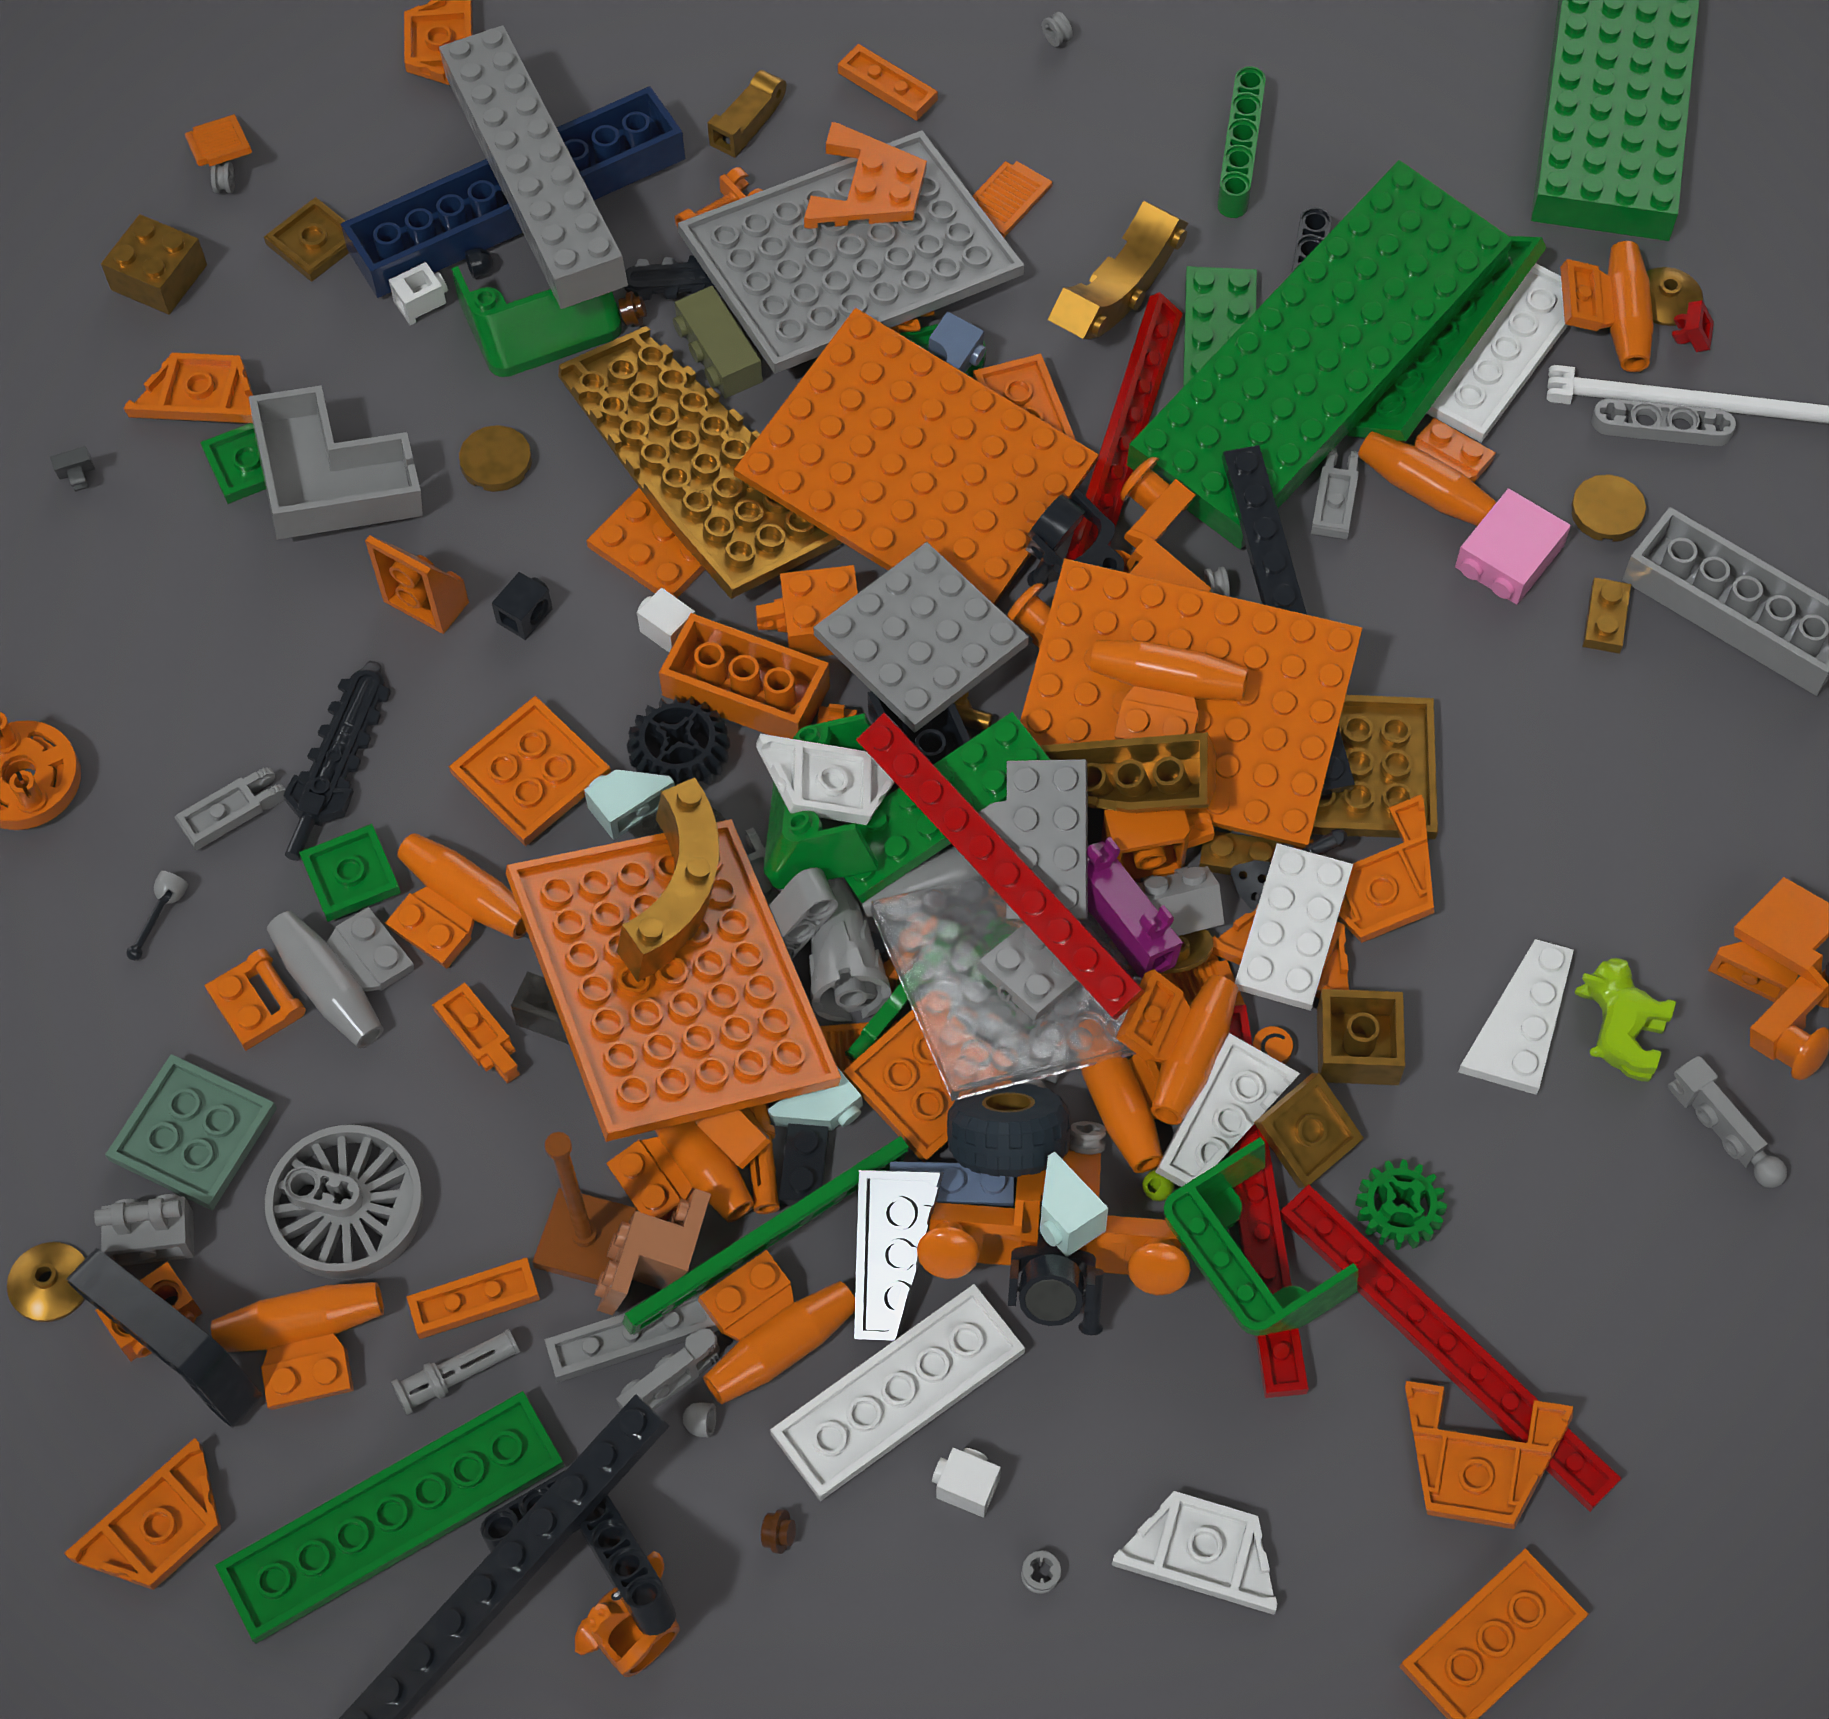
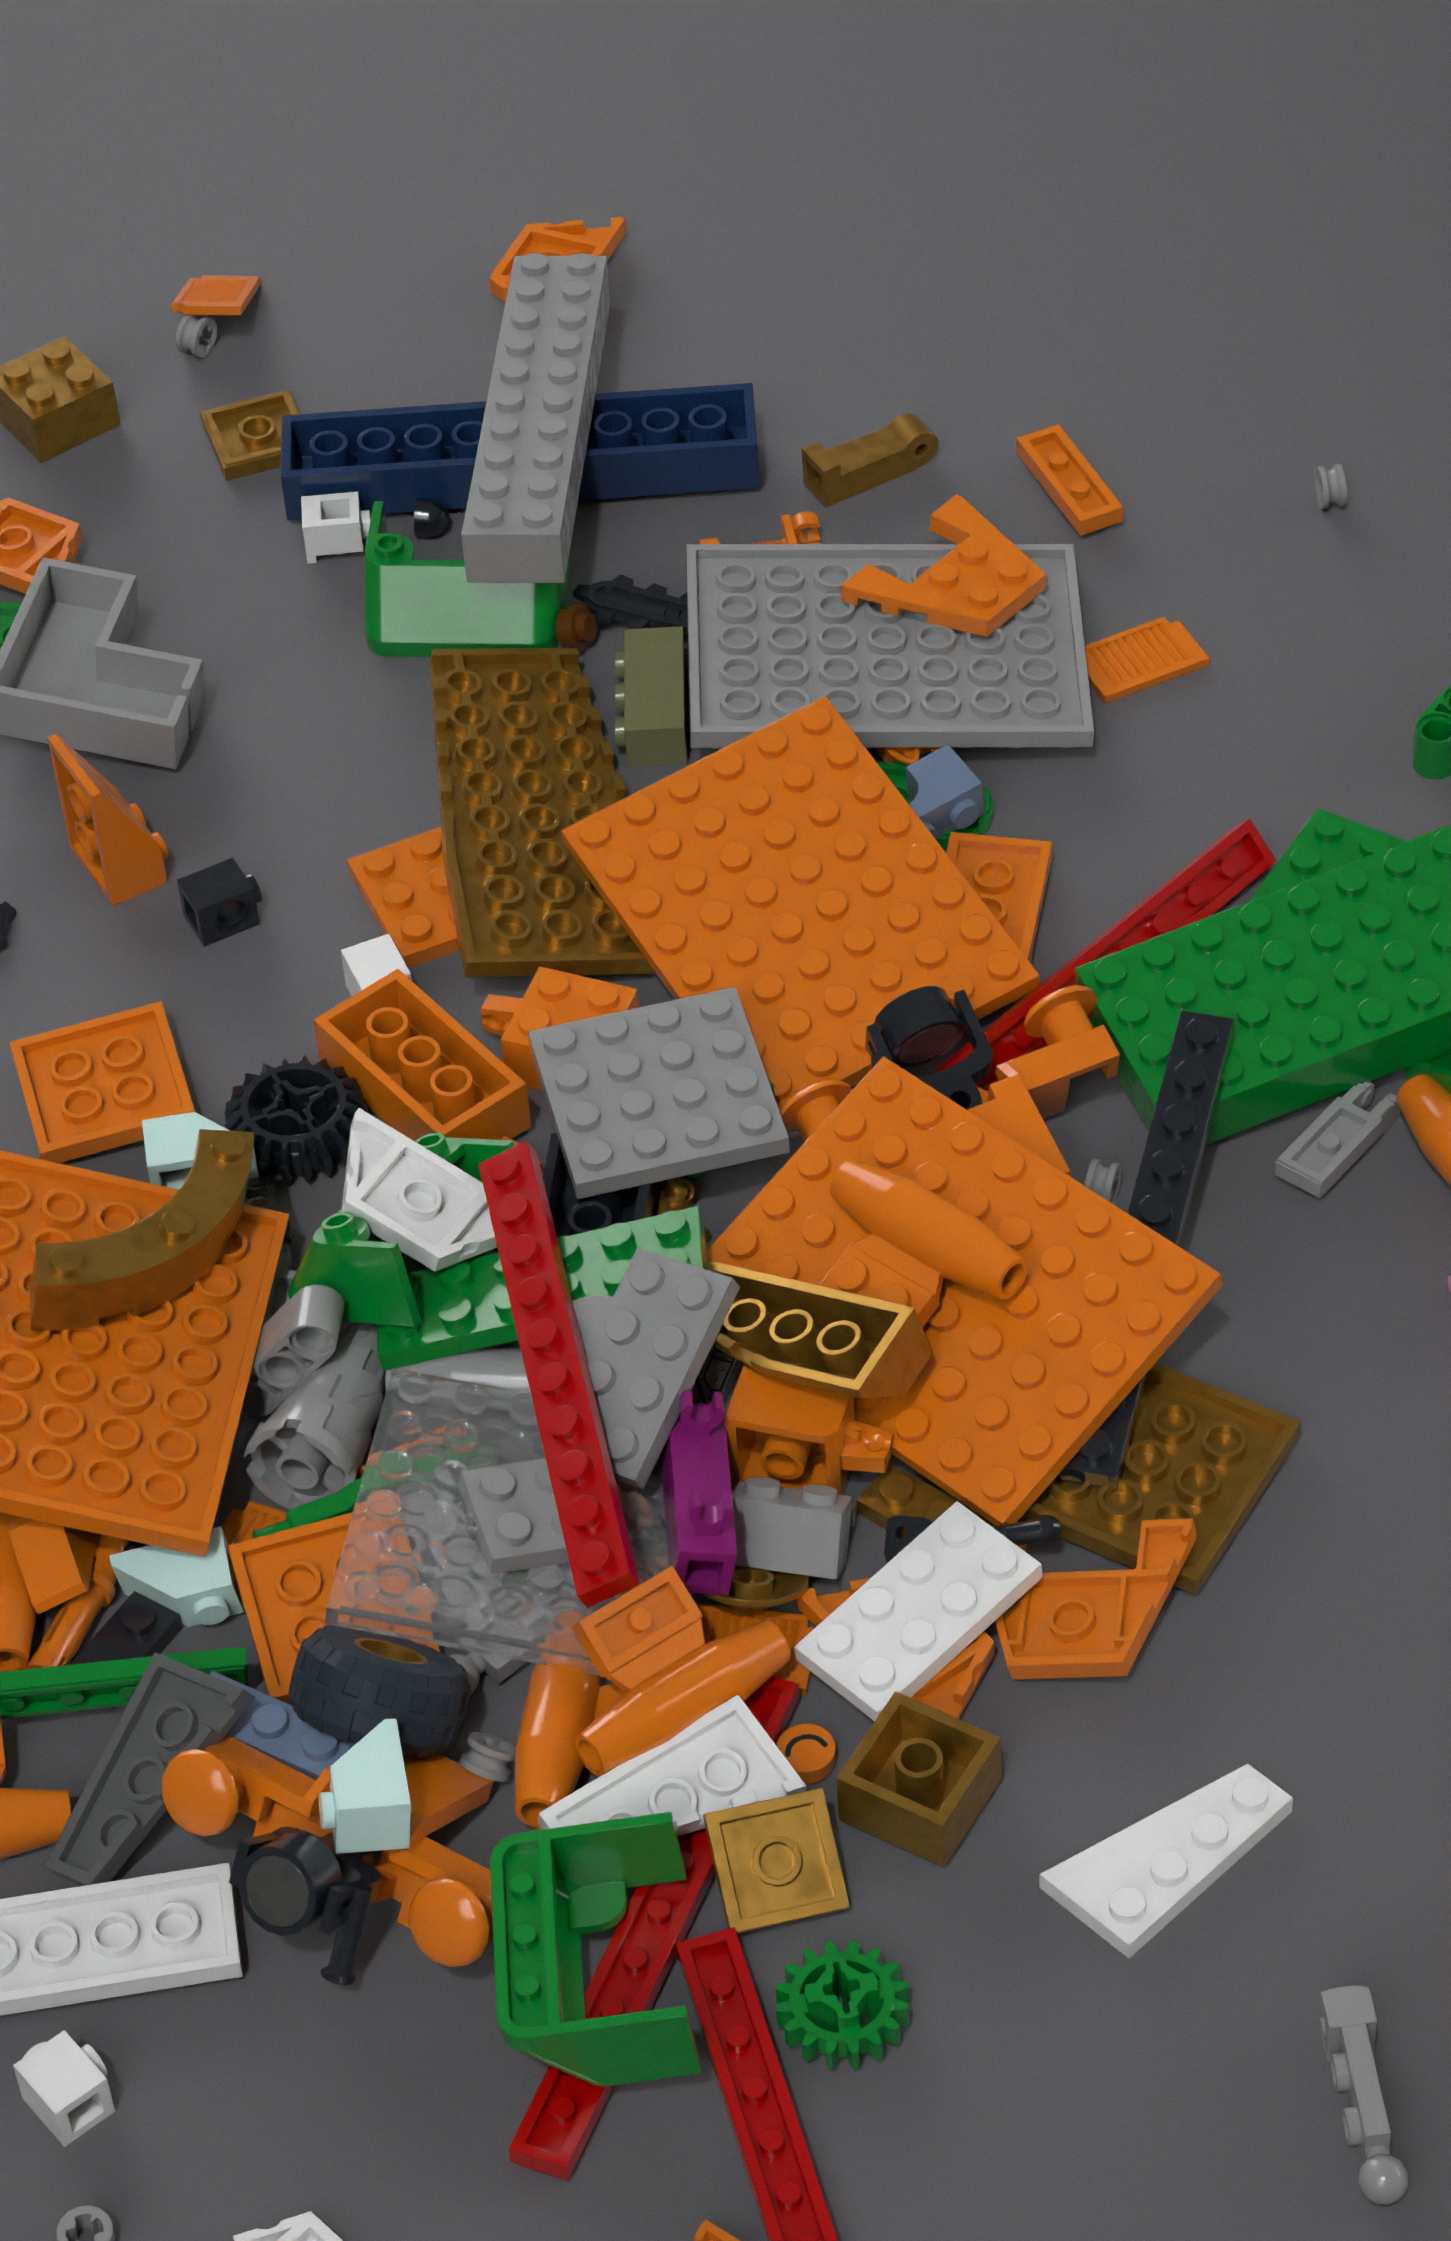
camera: 30 degrees right, 15 degrees down
(495, 458) = (303, 735): pearl gold tile -> none
(1121, 281) = (1211, 795): pearl gold brick -> none
(1624, 1015) = (1303, 1907): lime animal -> none

